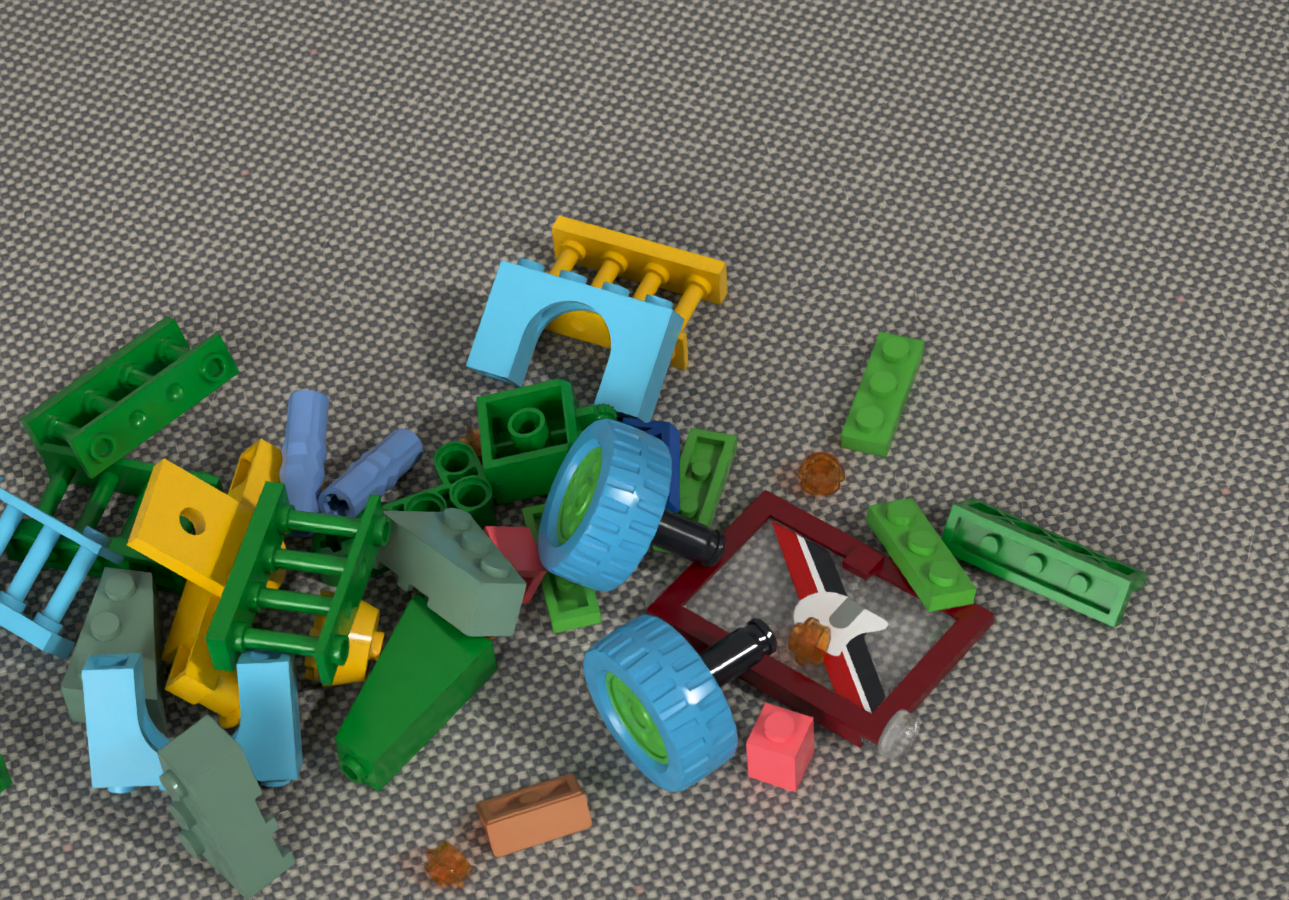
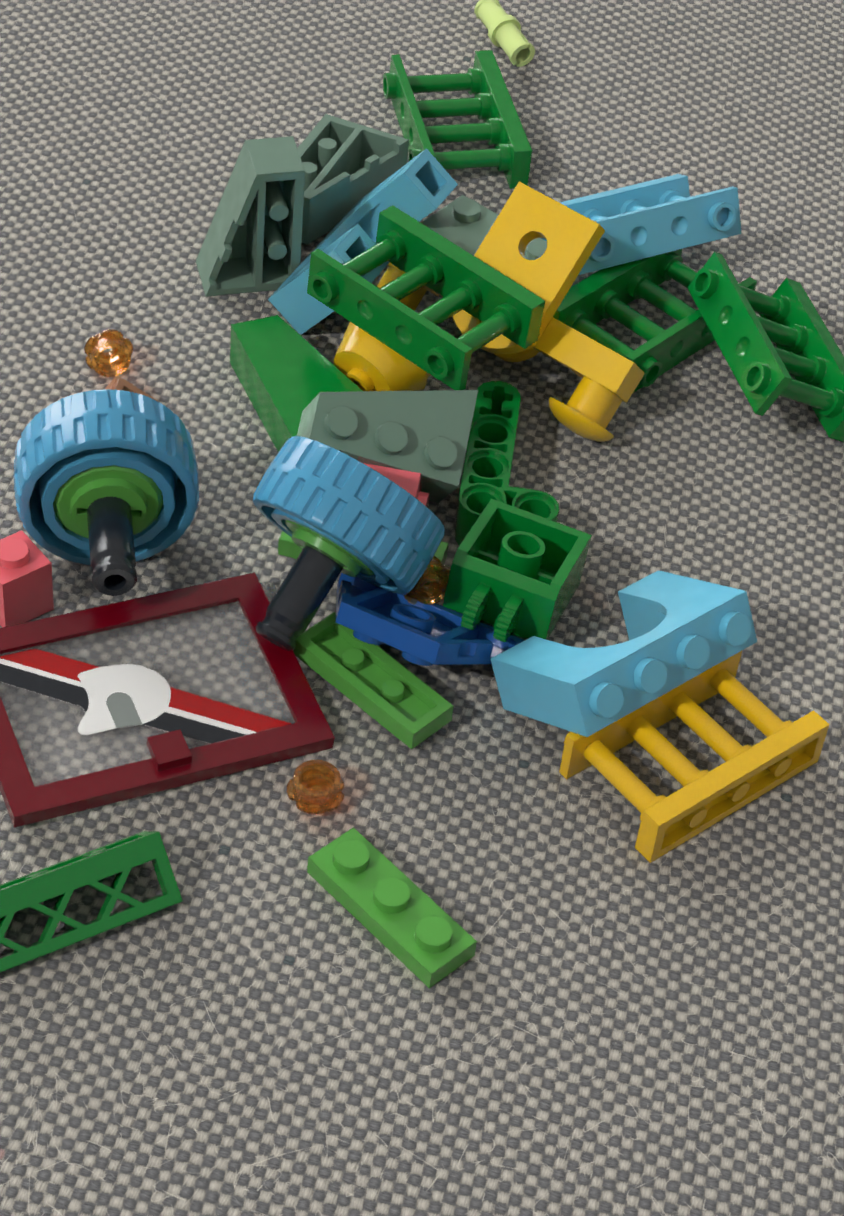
camera: 110 degrees right, 5 degrees down
(80, 823) = (341, 167): none -> sand green wedge
(305, 451) = (588, 384): medium blue axle -> none
(372, 474) = (557, 447): medium blue axle -> none
(809, 641) = (99, 642): clear orange plate -> none
(921, 555) = (137, 797): bright green plate -> none

